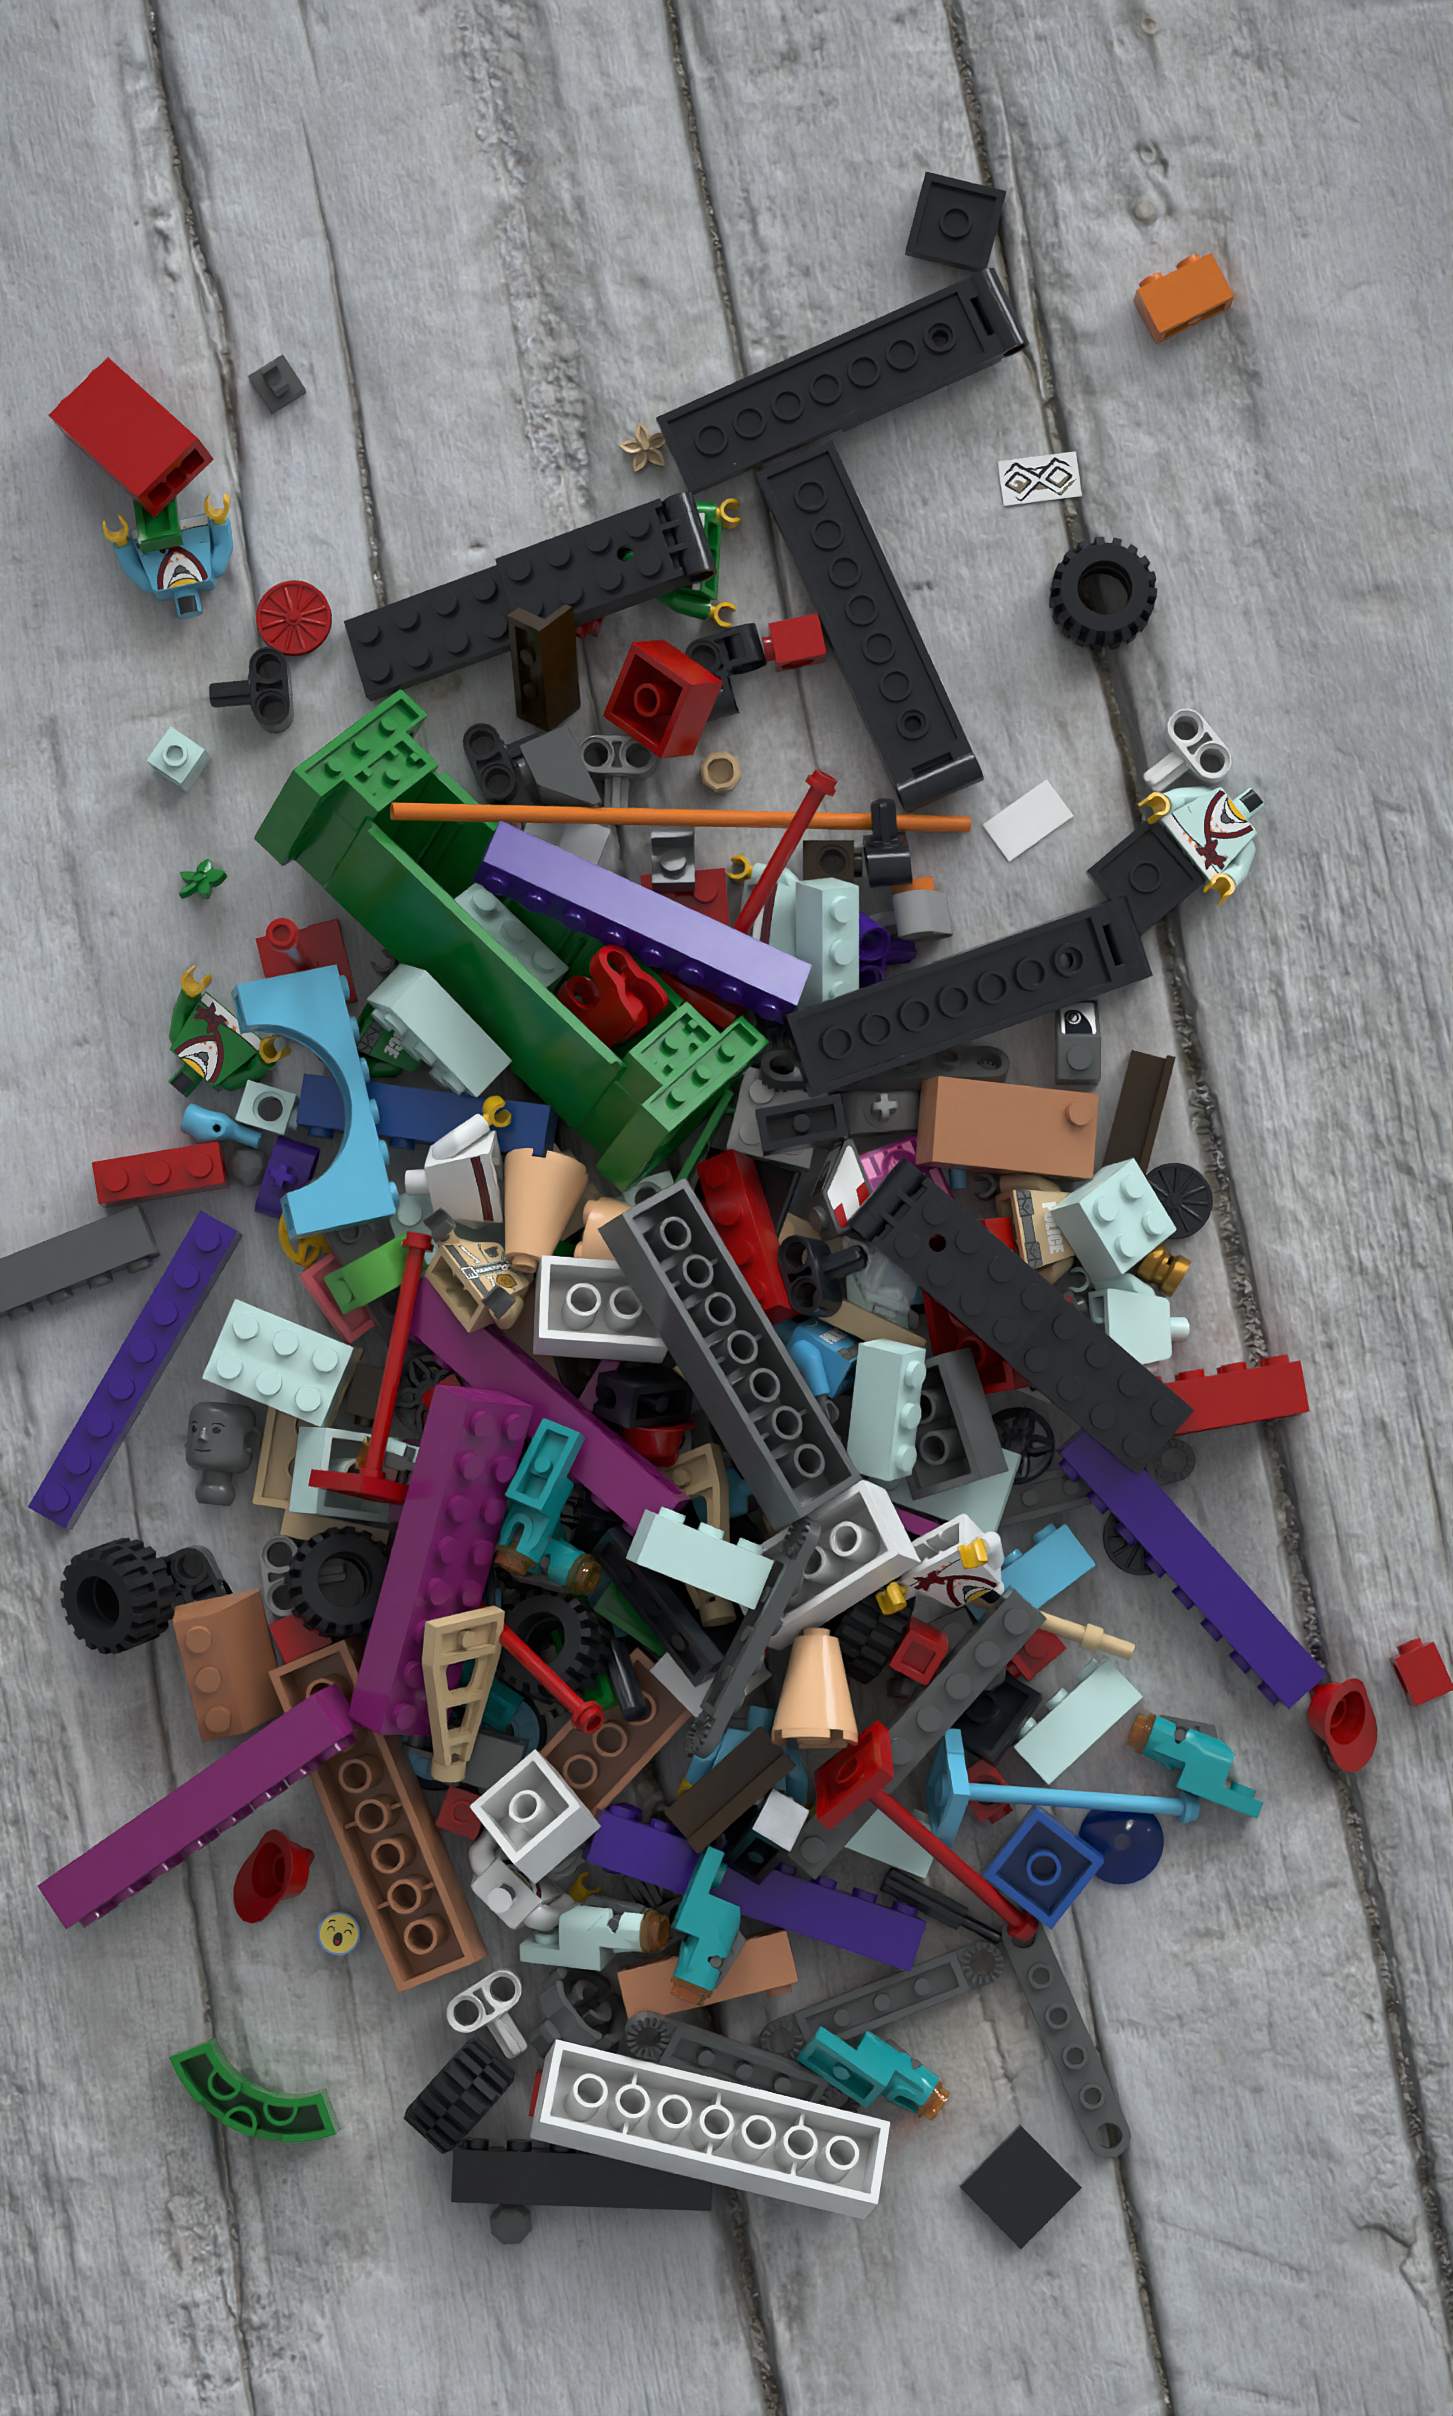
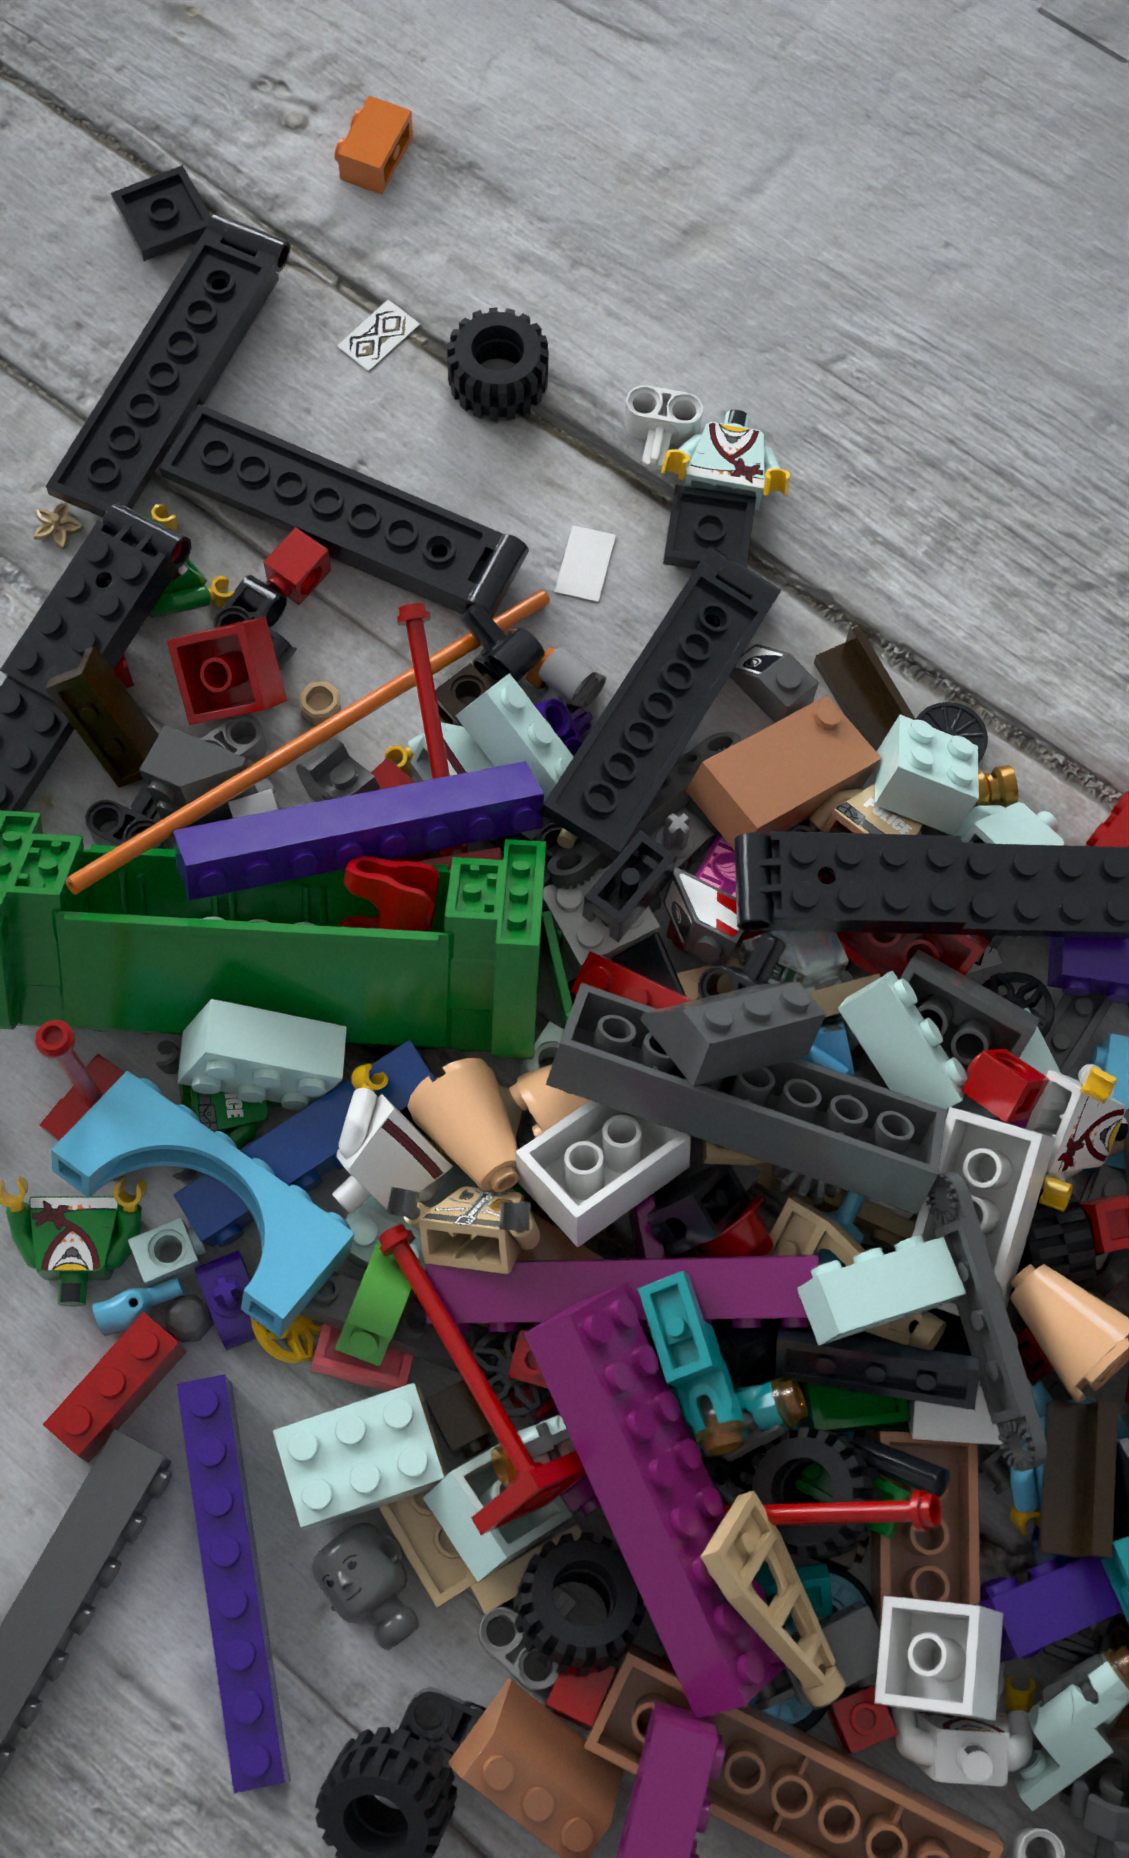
camera: 50 degrees left, 15 degrees down
(759, 1301) = (737, 1030): none -> dark grey slope
(925, 1496) = (1004, 1084): none -> red brick

